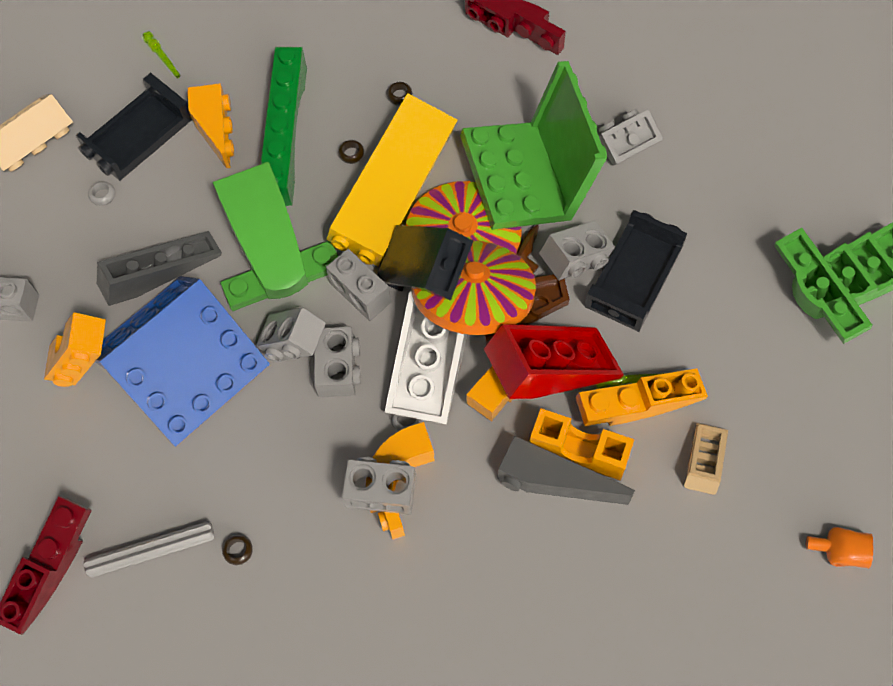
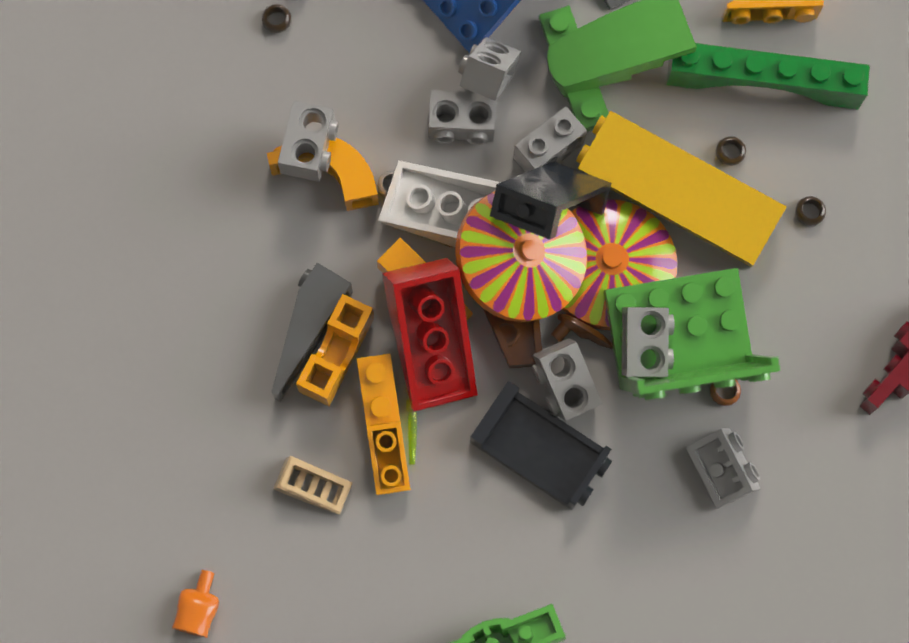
camera: 90 degrees right, 10 degrees up
(539, 186) = (636, 342): none -> light grey brick

